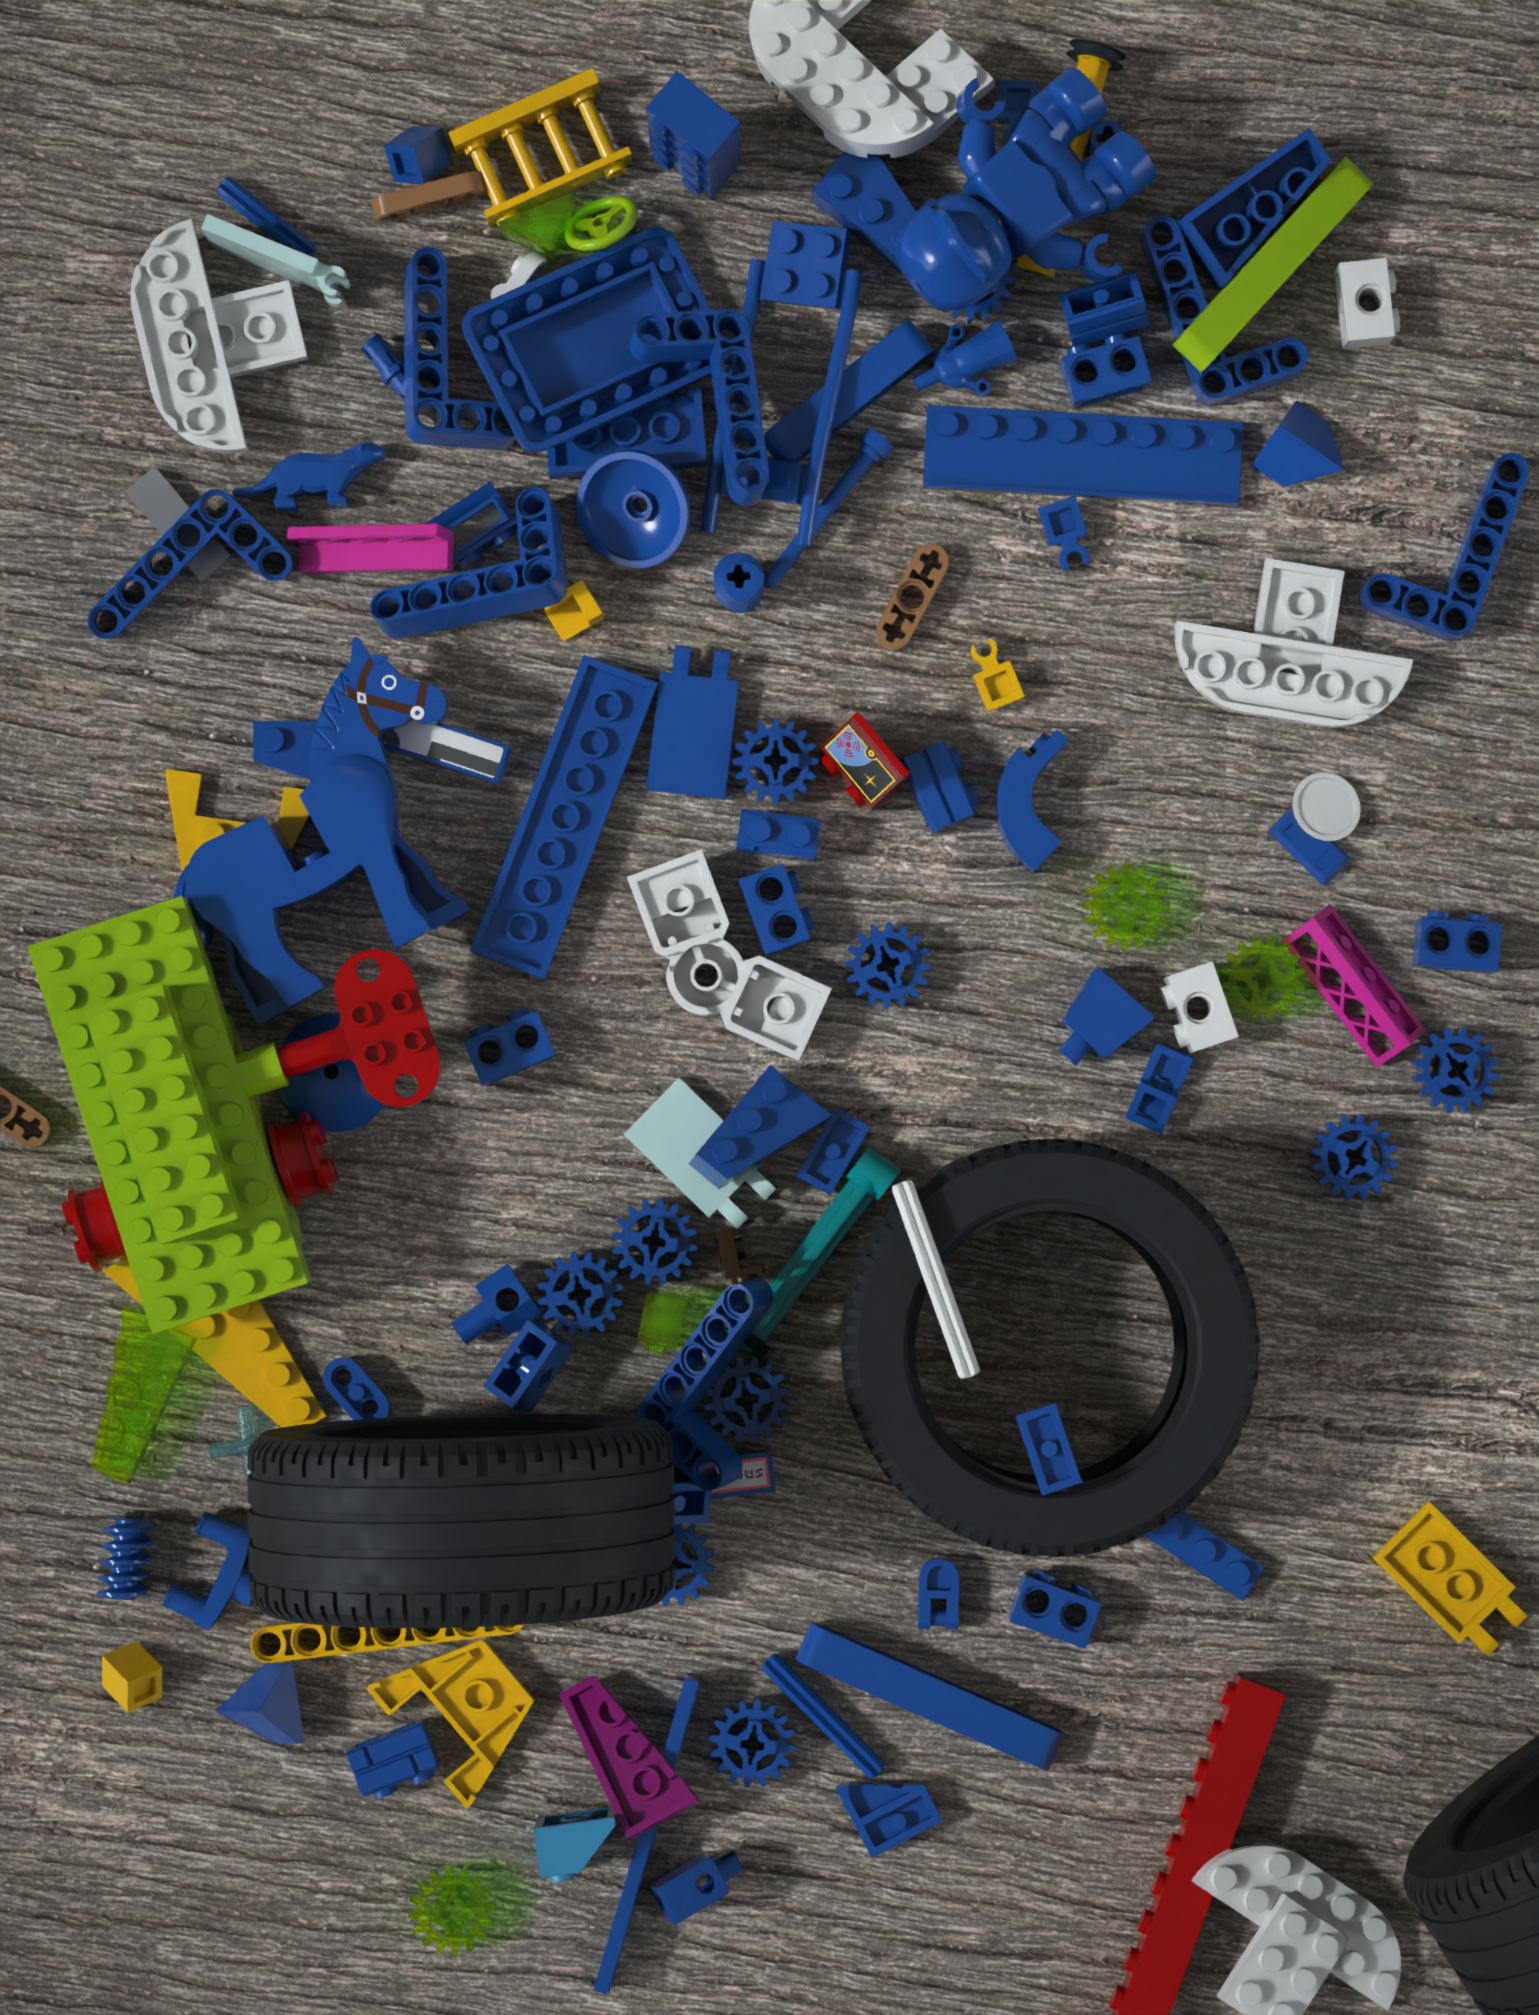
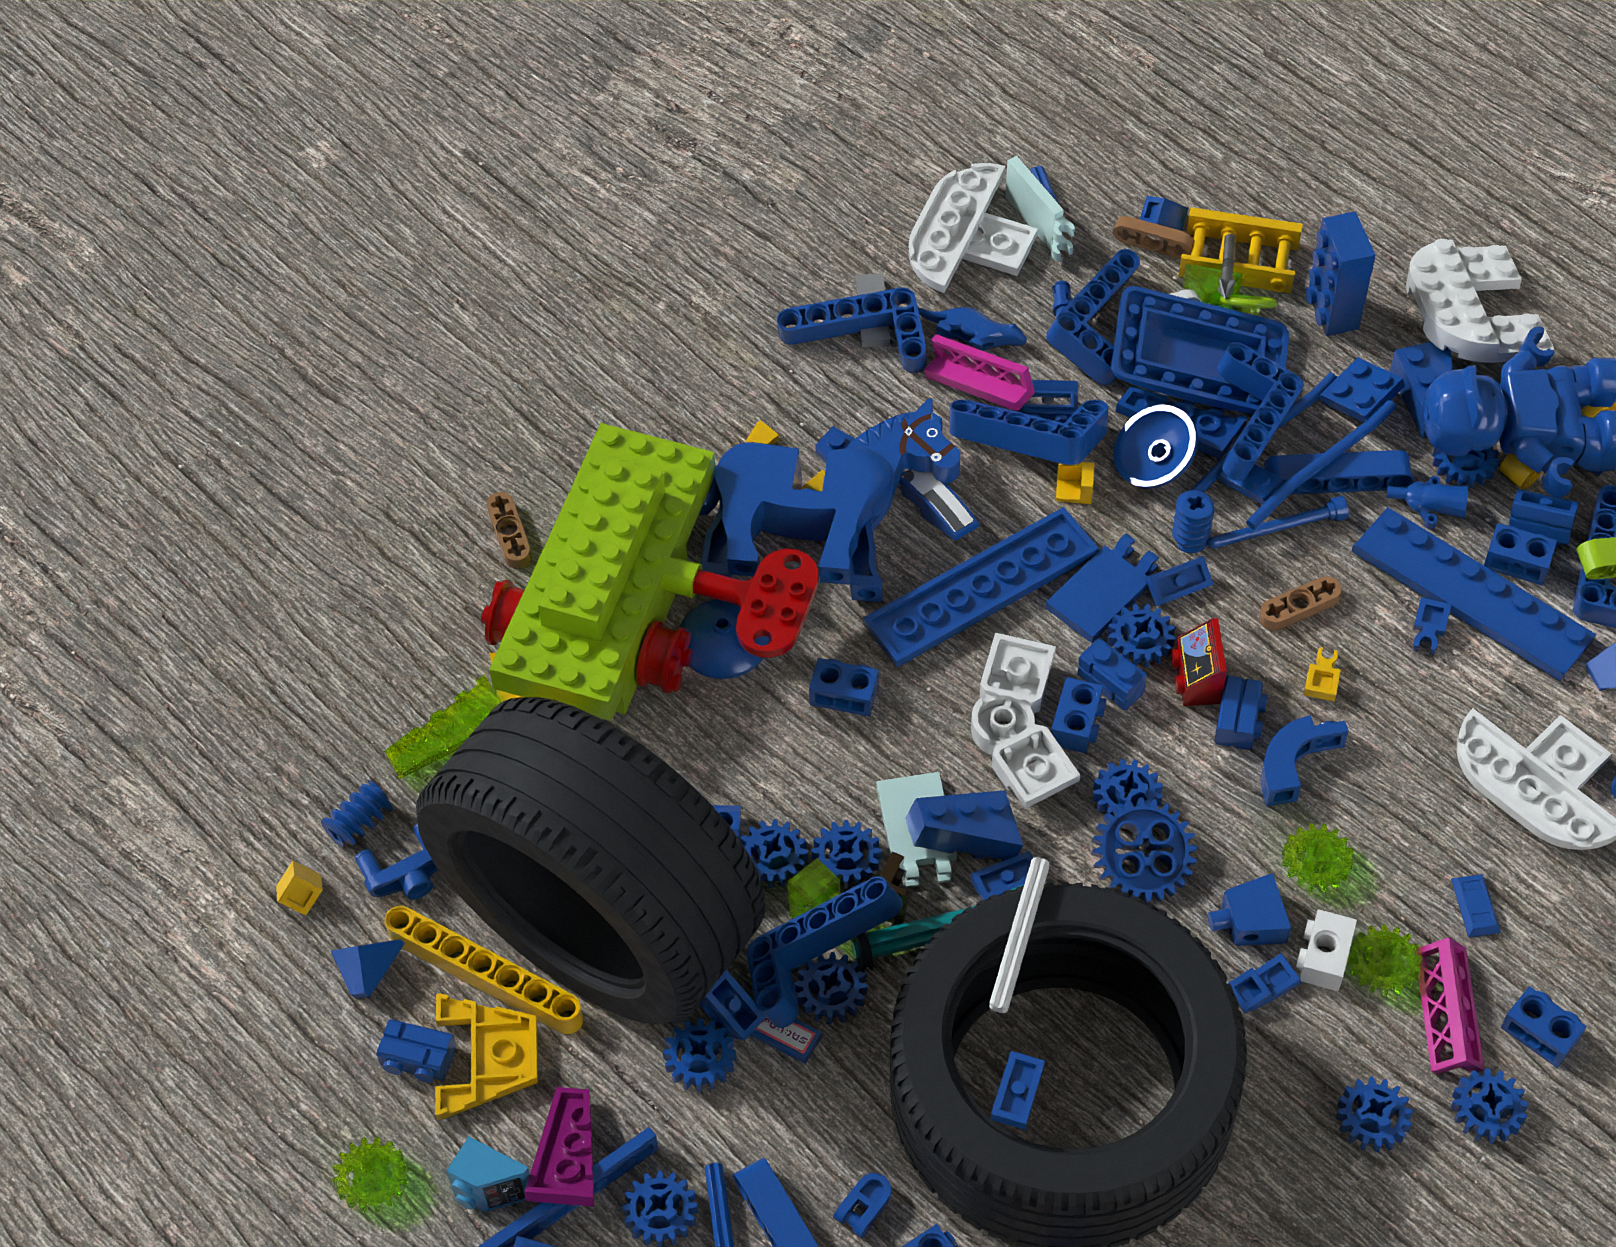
camera: 40 degrees right, 30 degrees down
(567, 228) = (1226, 281): none -> flat silver piece
(770, 663) = (1179, 581): none -> blue plate
(970, 1053) = (1140, 822): none -> blue gear
(1326, 806) = (1504, 884): white piece -> none

